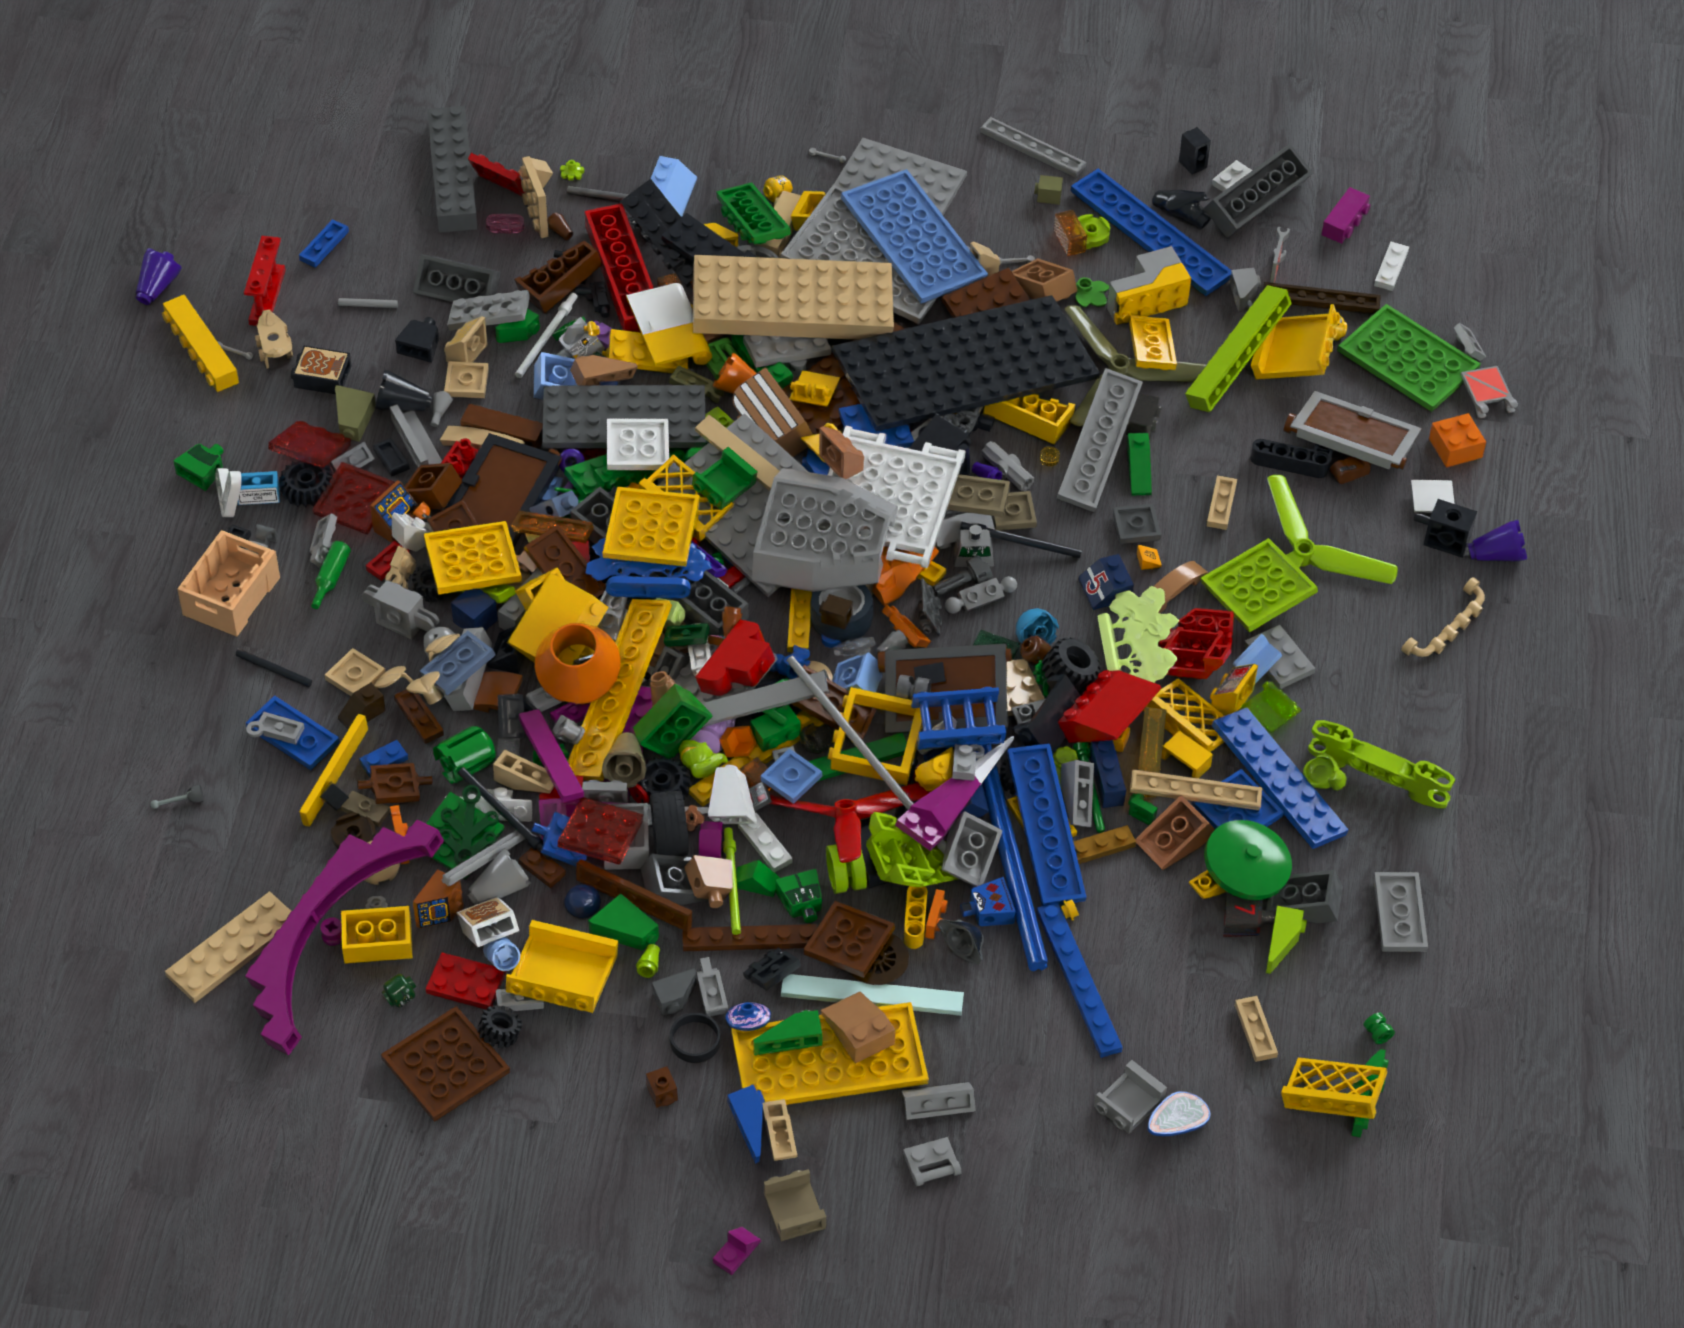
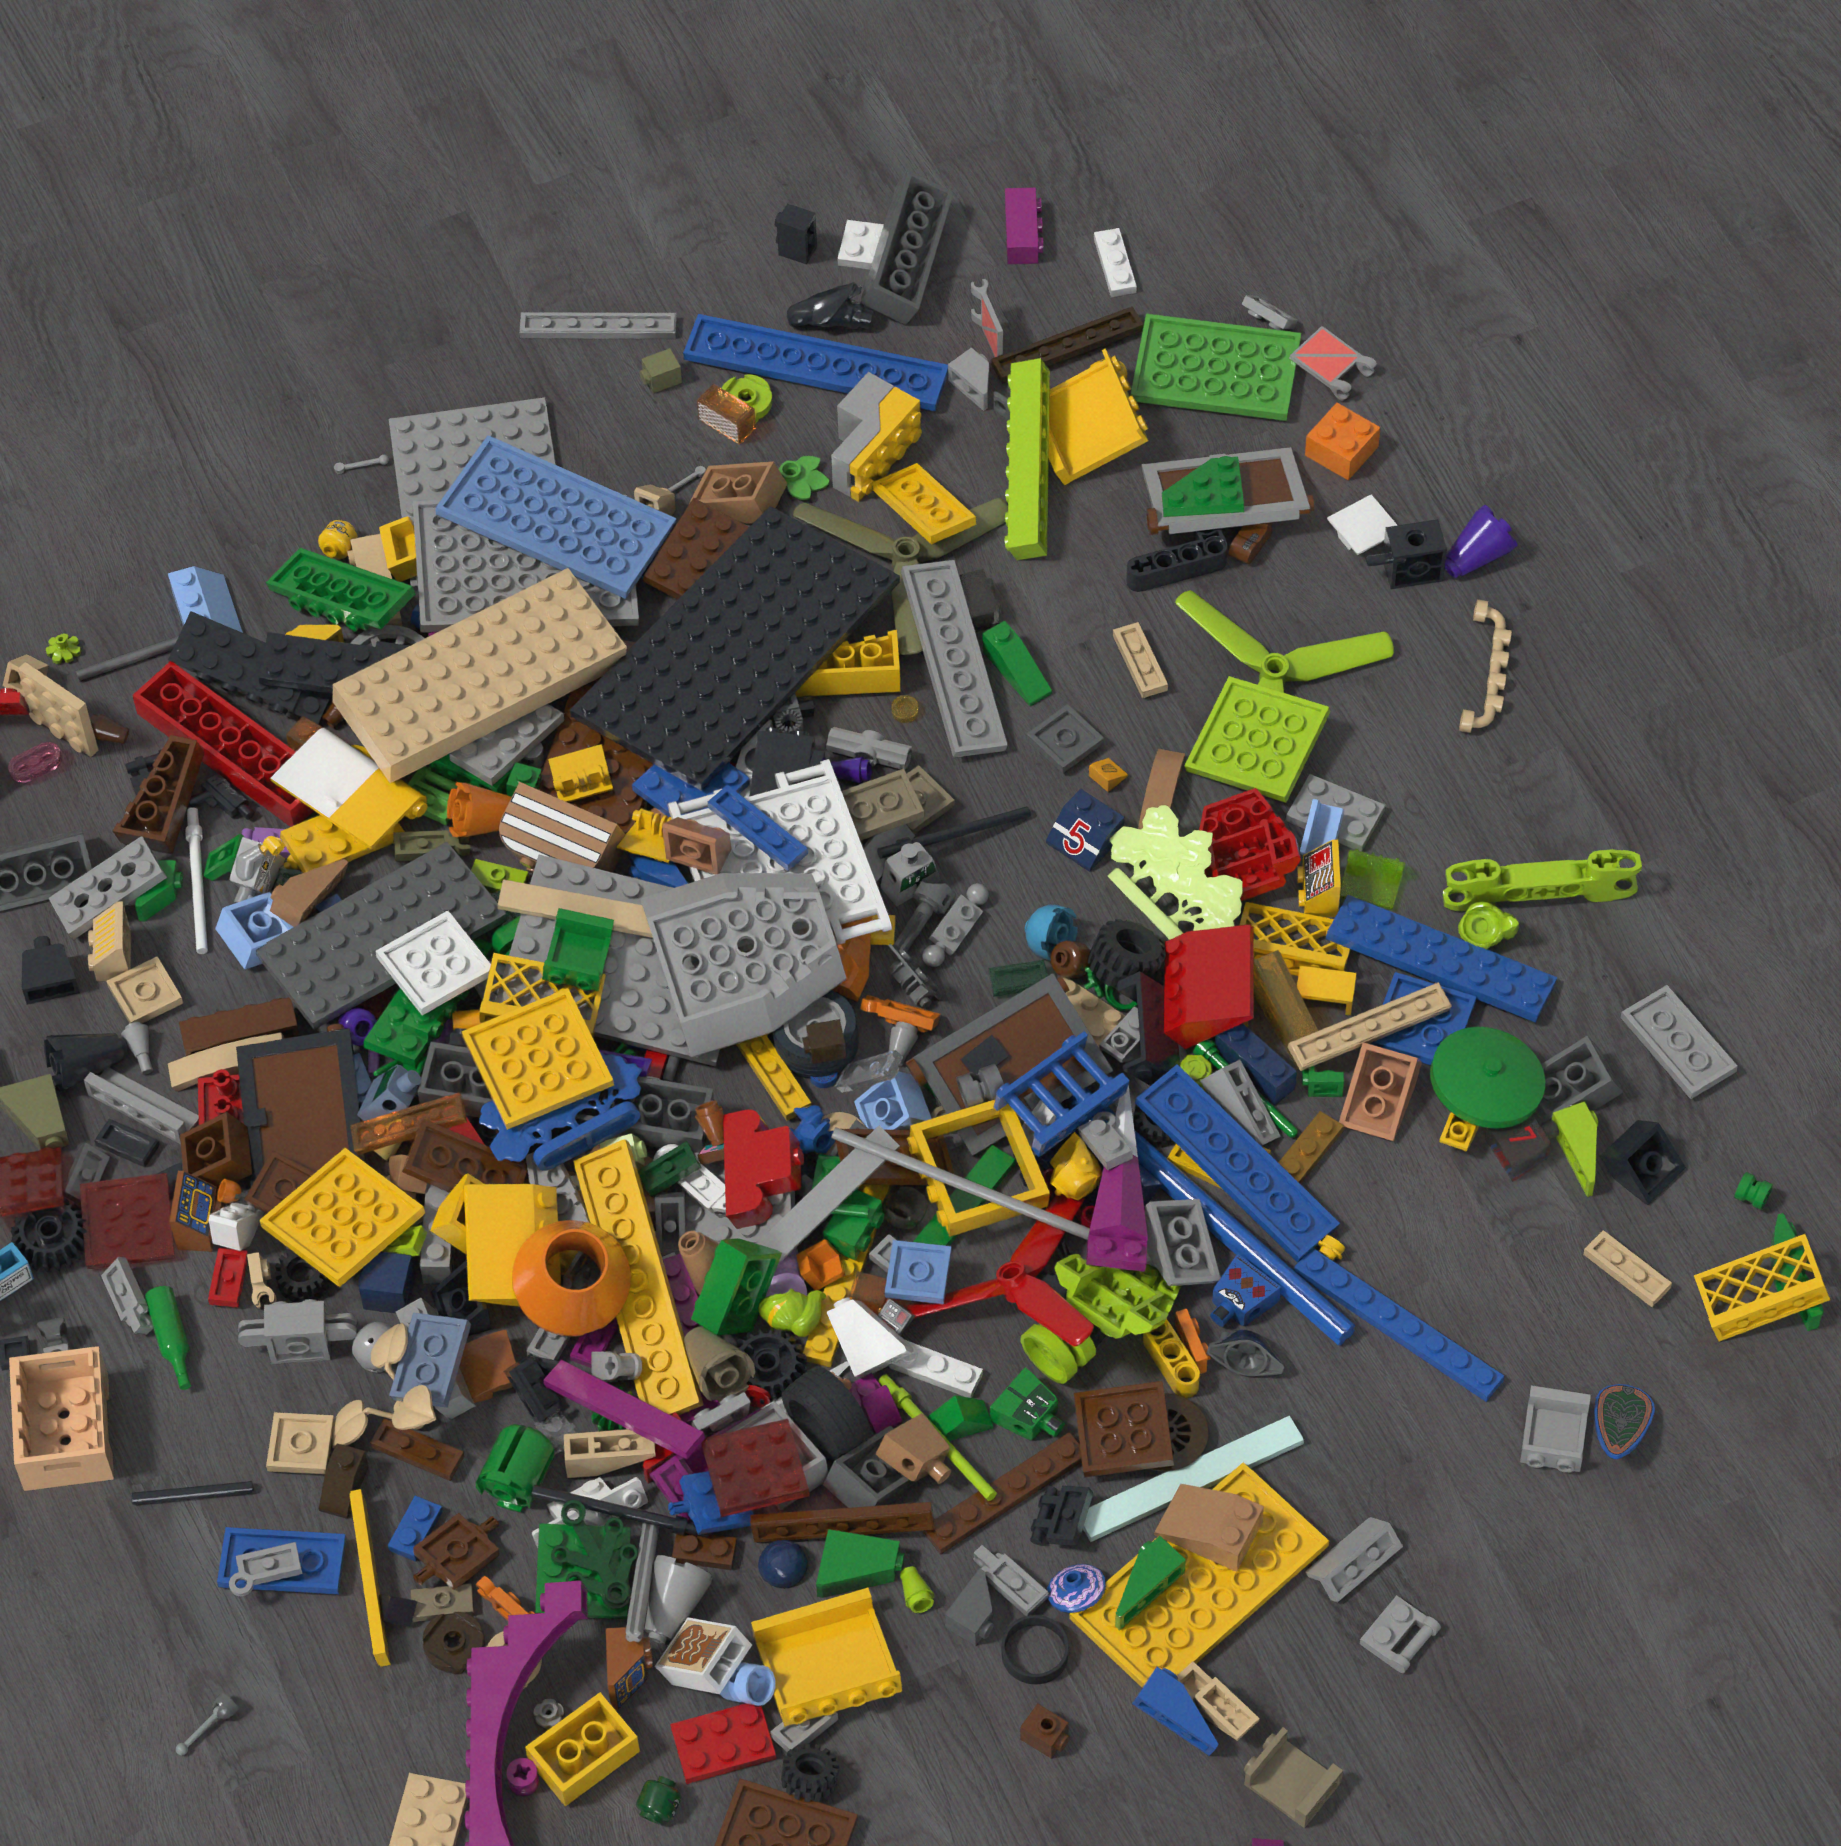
camera: 30 degrees left, 5 degrees up
(886, 465) = (757, 828): none -> blue plate
(1318, 969) = (1643, 1160): none -> black slope
(1341, 423) = (1206, 490): none -> green plate

